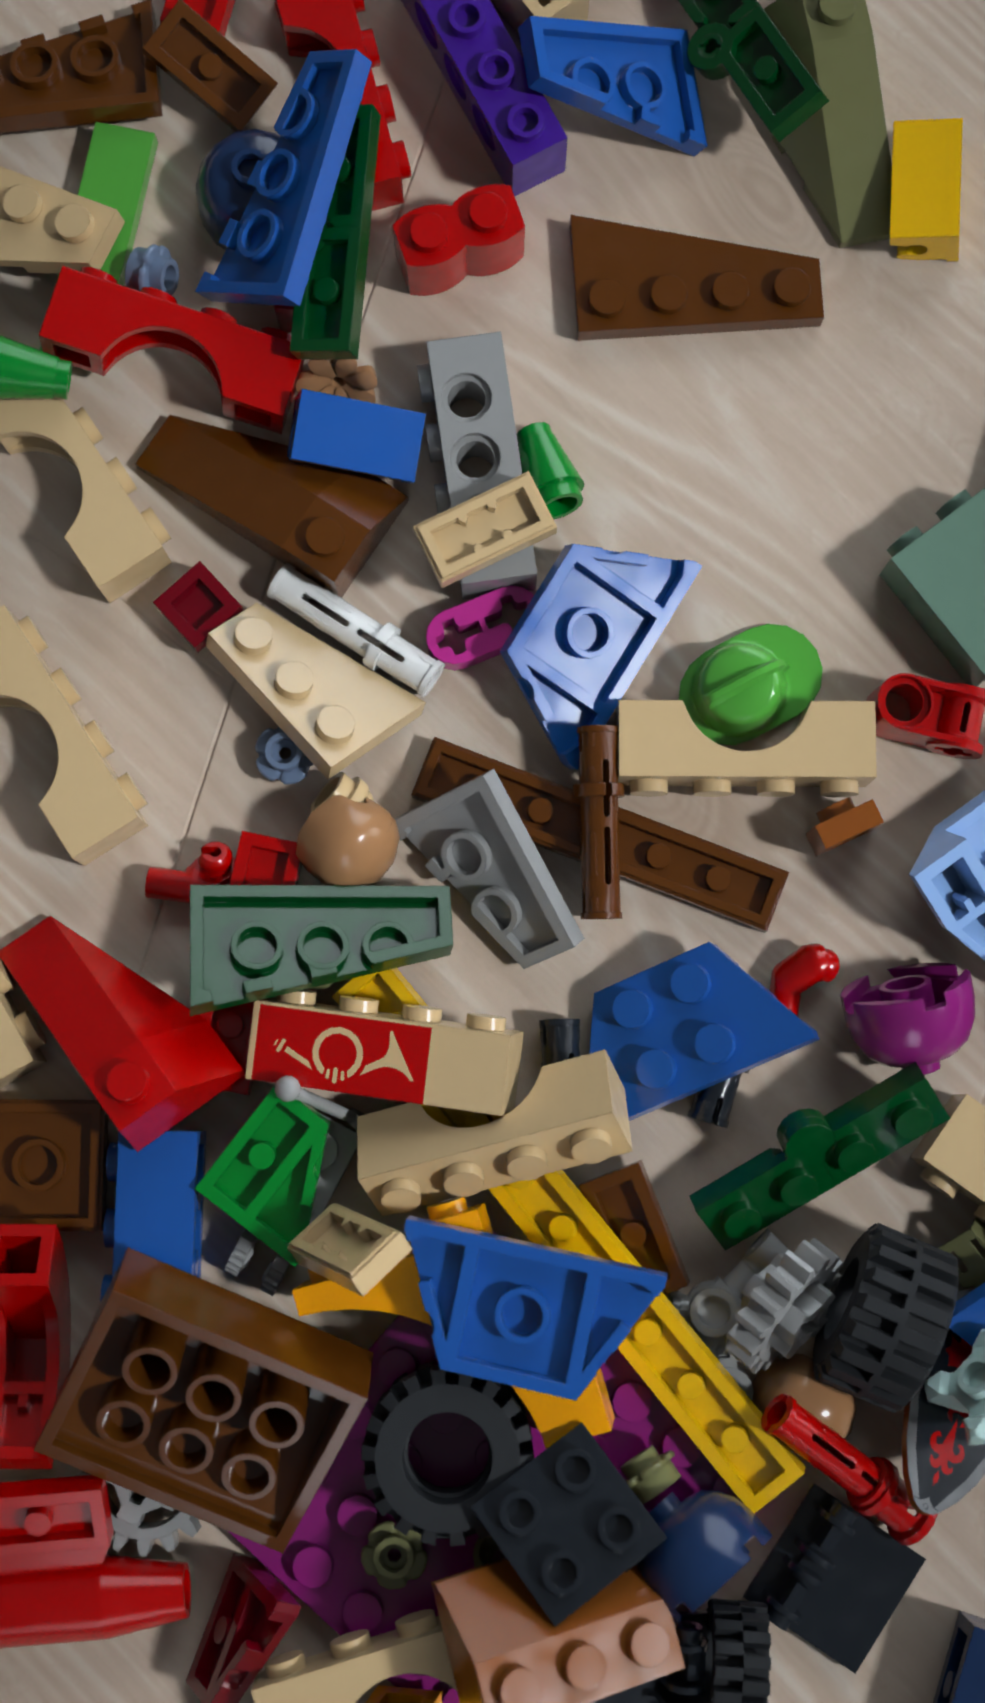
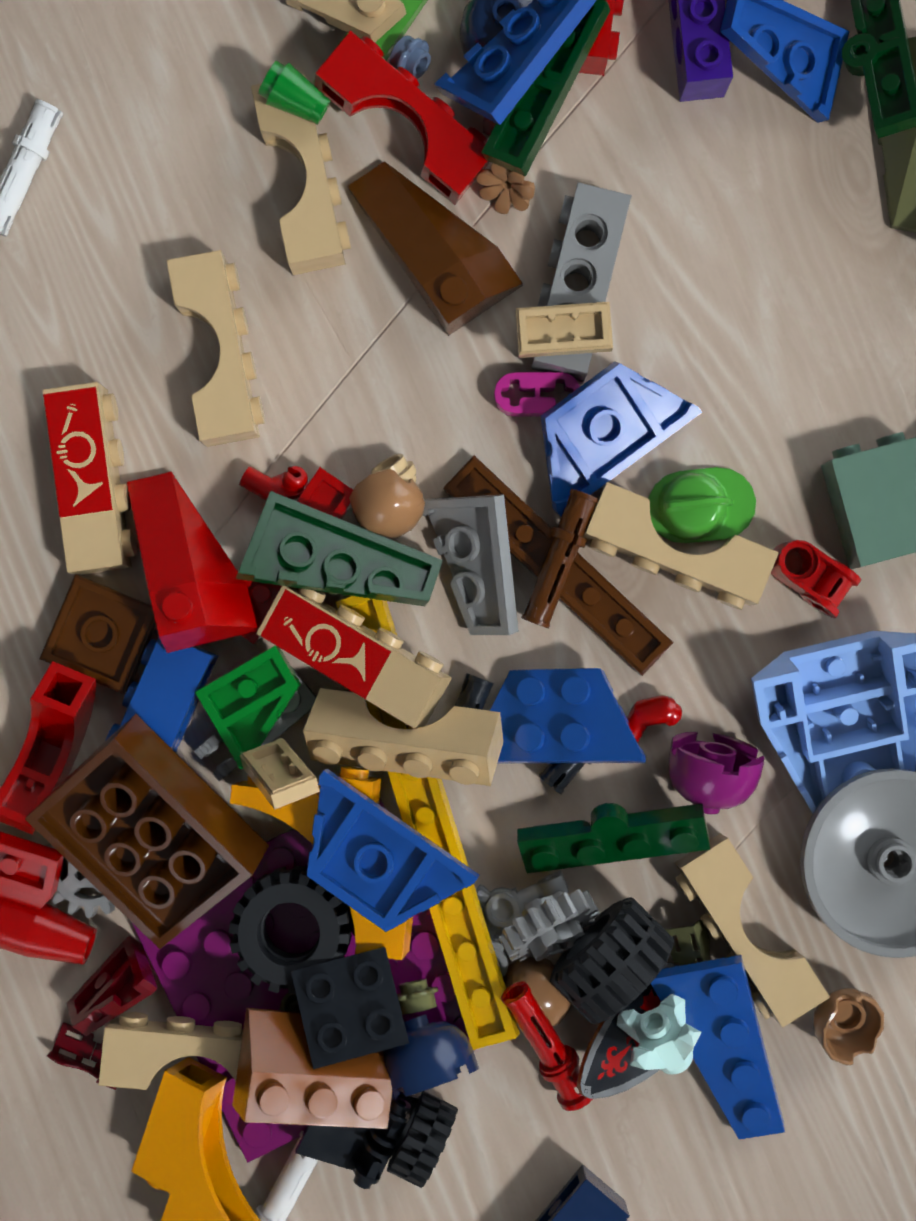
camera: 25 degrees right, 5 degrees up
(197, 605) = (351, 302): dark red plate -> none
(272, 765) = (369, 438): sand blue plate -> none
(289, 1089) = (282, 653): light grey hinge -> none
(295, 591) = (420, 318): white pin -> none
(310, 689) = (404, 390): tan wing -> none
(355, 435) = (503, 228): blue hinge -> none
(393, 1573) = (218, 980): olive plate -> none
(471, 237) = (640, 120): red brick -> none
(550, 469) = (625, 304): green cone -> none
(634, 1214) = (476, 825): reddish brown plate -> none
(679, 284) = (765, 208): reddish brown wing -> none
(834, 1578) = (509, 1110): black hinge -> none
(842, 824) = (722, 625): dark orange plate -> none

